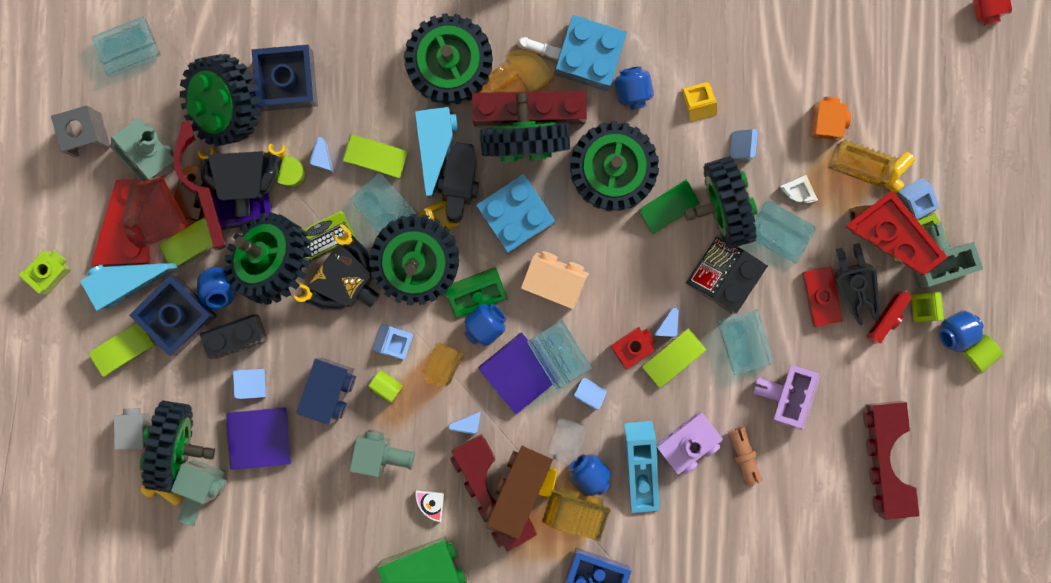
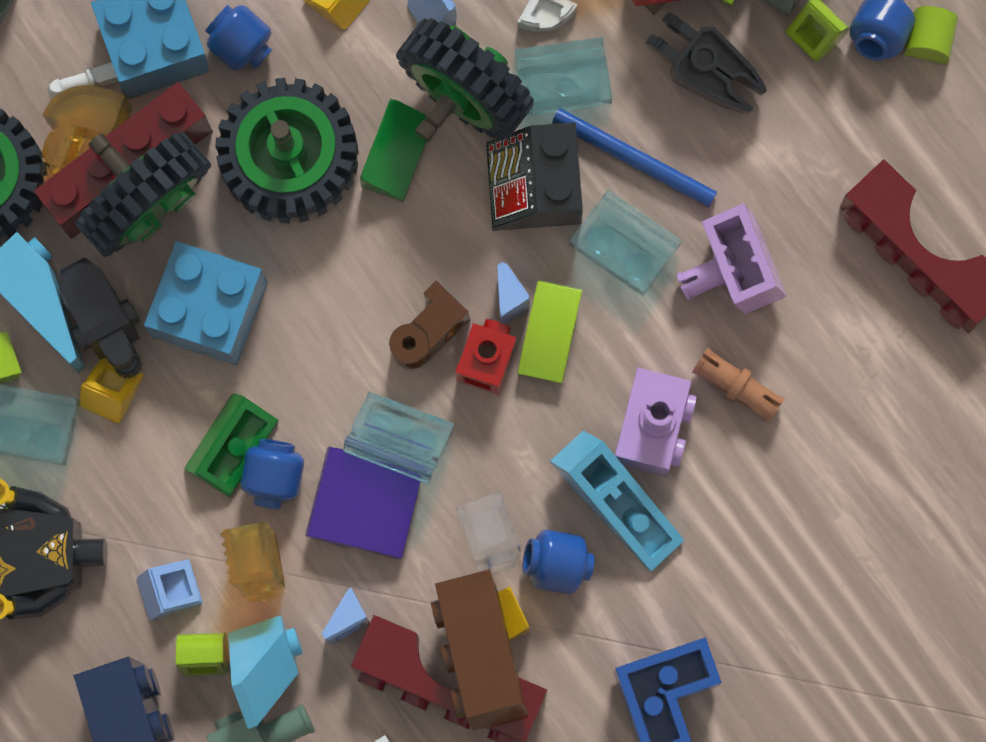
camera: 30 degrees left, 10 degrees down
(409, 419) = (262, 665): none -> medium azure slope
(414, 259) = (115, 456): wheel -> none
(555, 279) = (319, 346): light nougat brick -> none
(576, 514) = (578, 622): clear yellow brick -> none
(590, 393) = (477, 460): light blue slope -> none
(609, 313) = (432, 329): none -> reddish brown leg
(784, 301) = (638, 159): none -> blue bar
(822, 296) = (677, 116): red plate -> none
(890, 317) = (781, 76): red plate -> none

